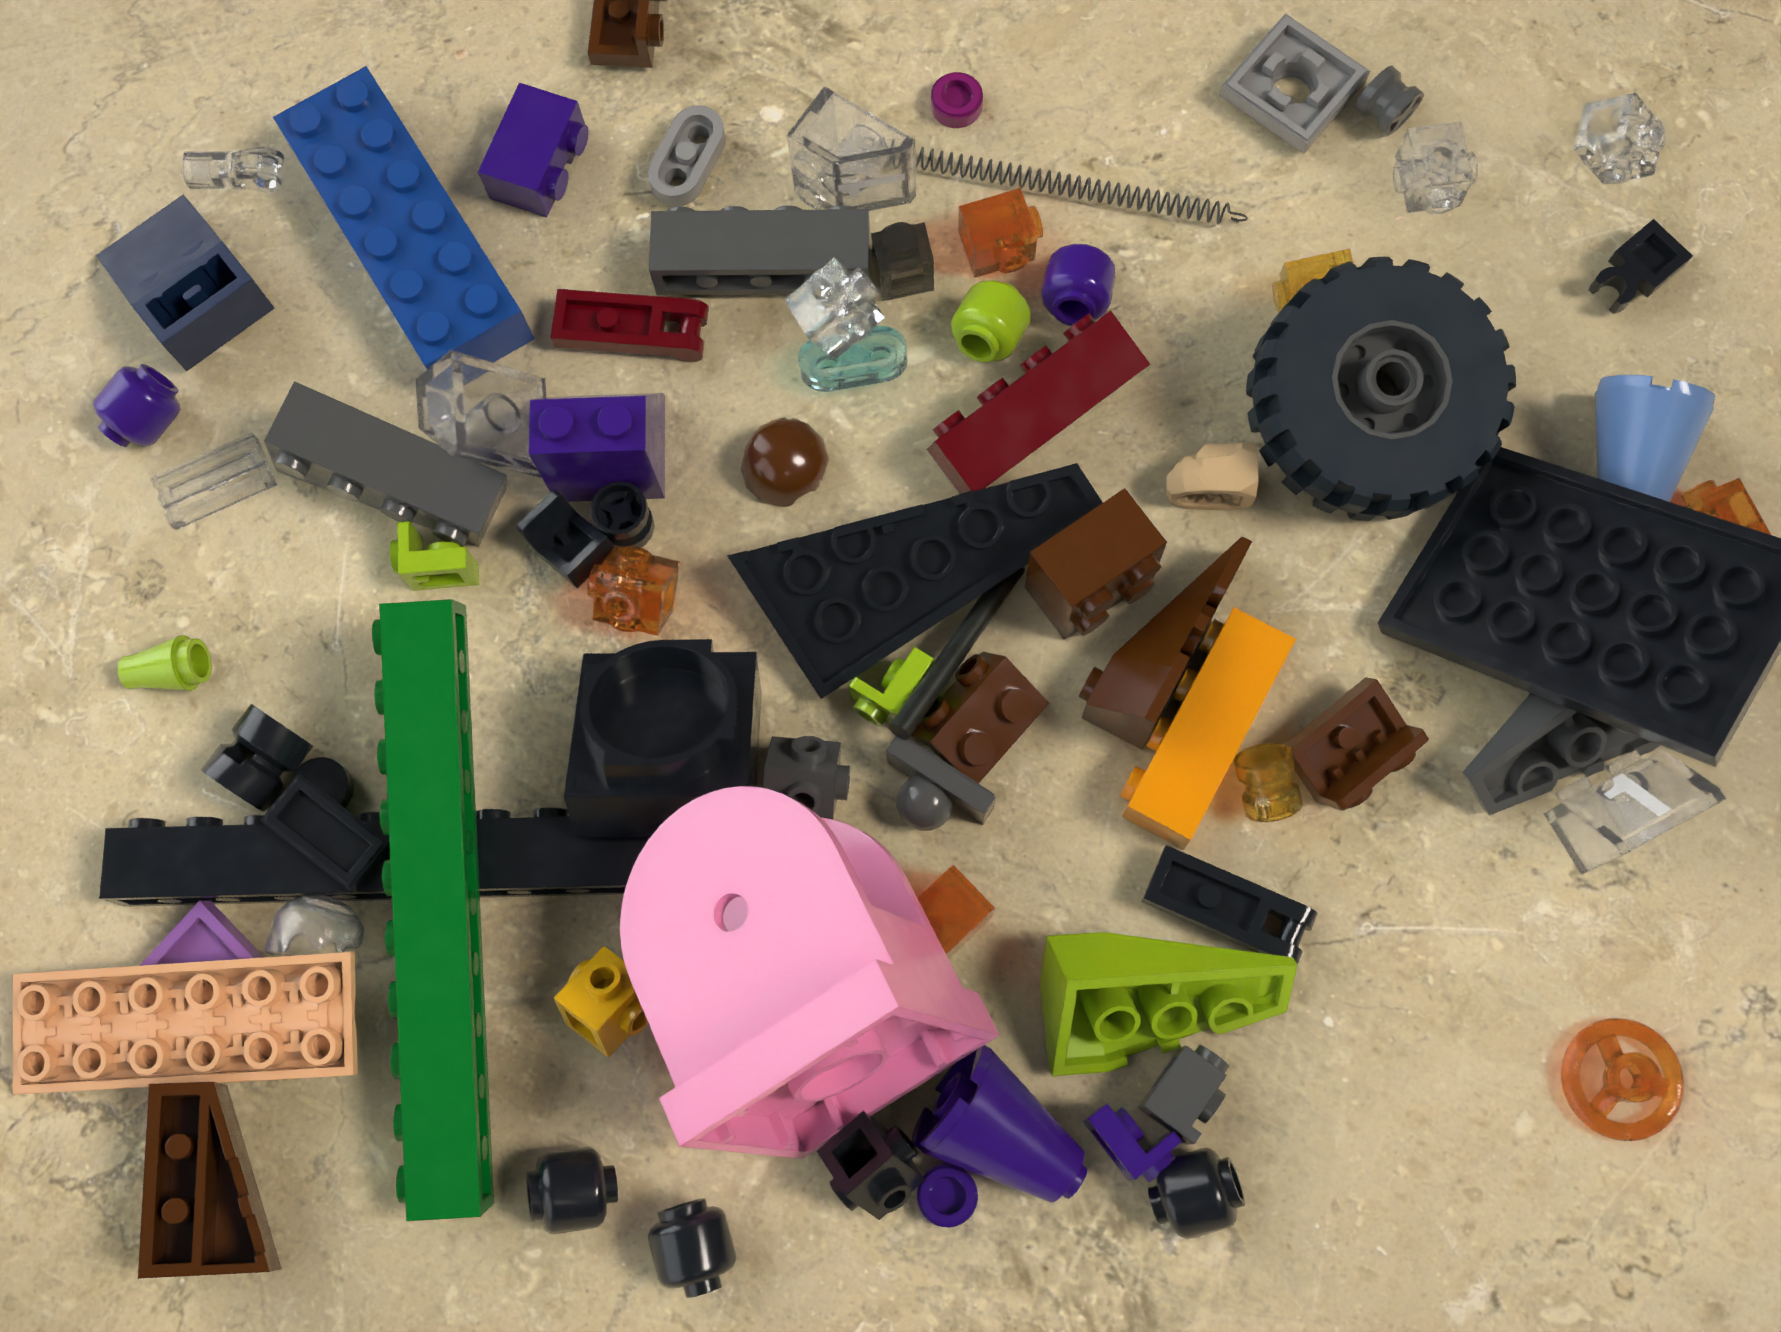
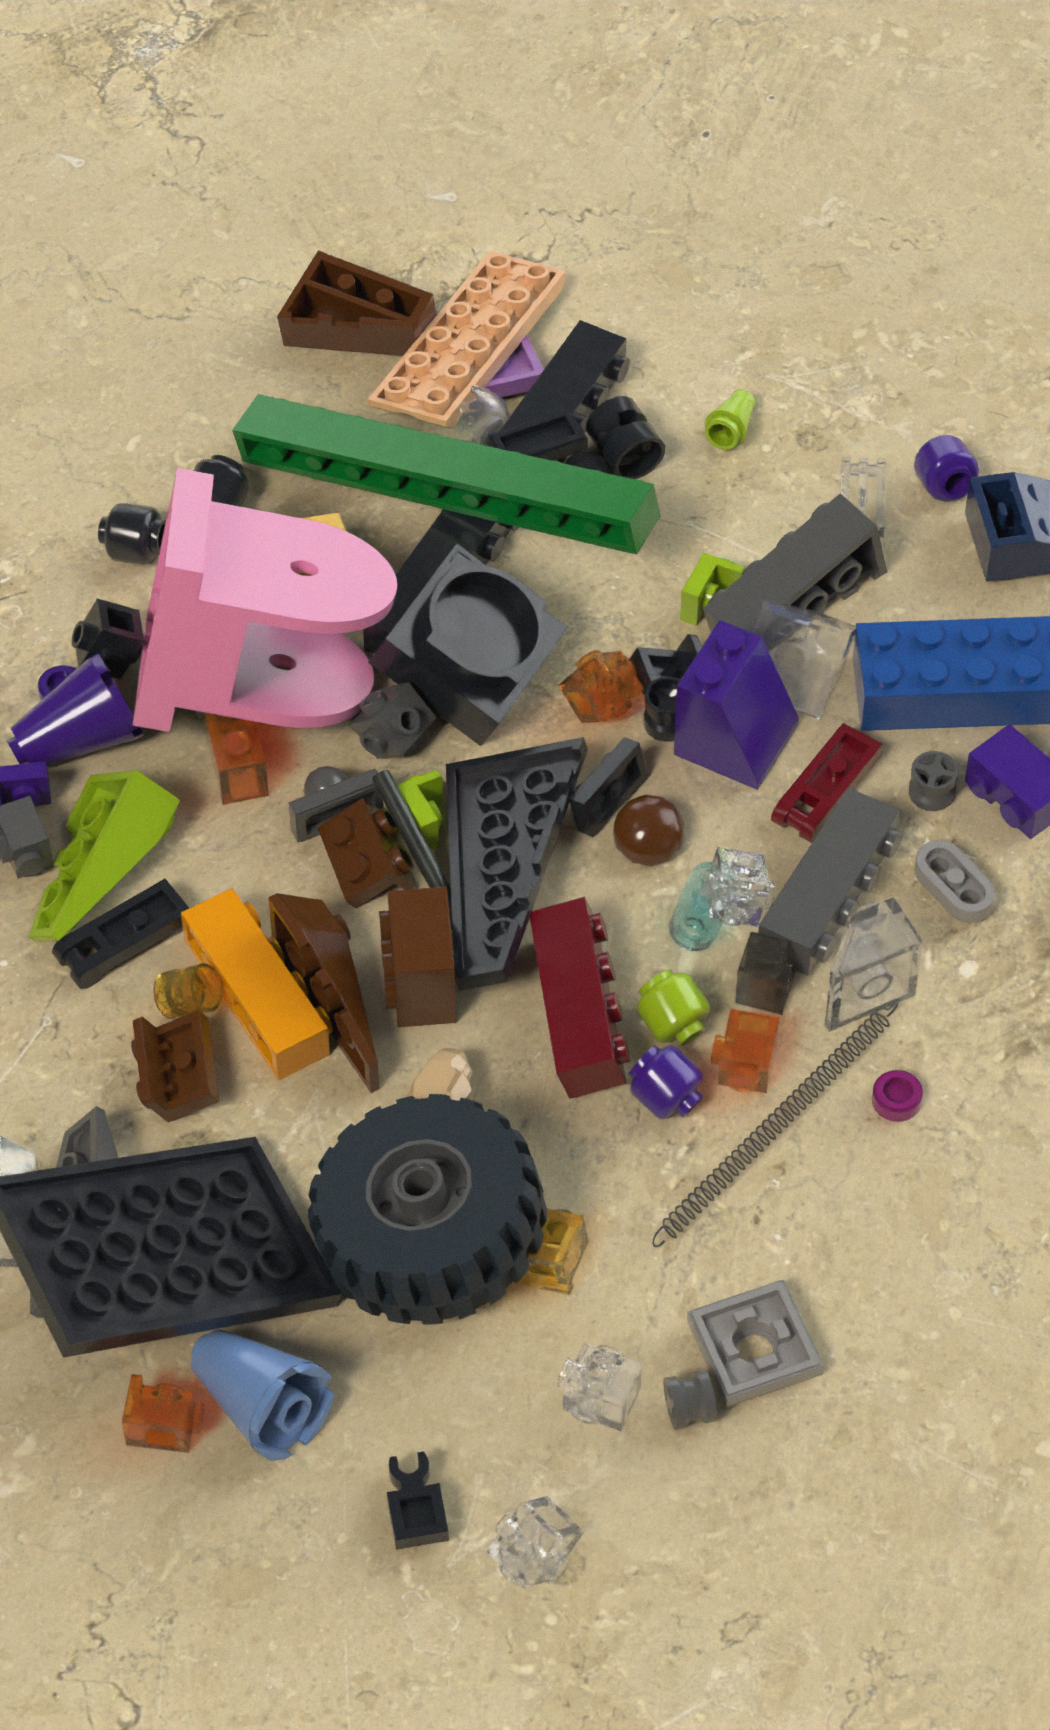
camera: 115 degrees right, 20 degrees down
(561, 224) = (925, 772): none -> dark grey wheel
(734, 520) = (608, 786): none -> black plate

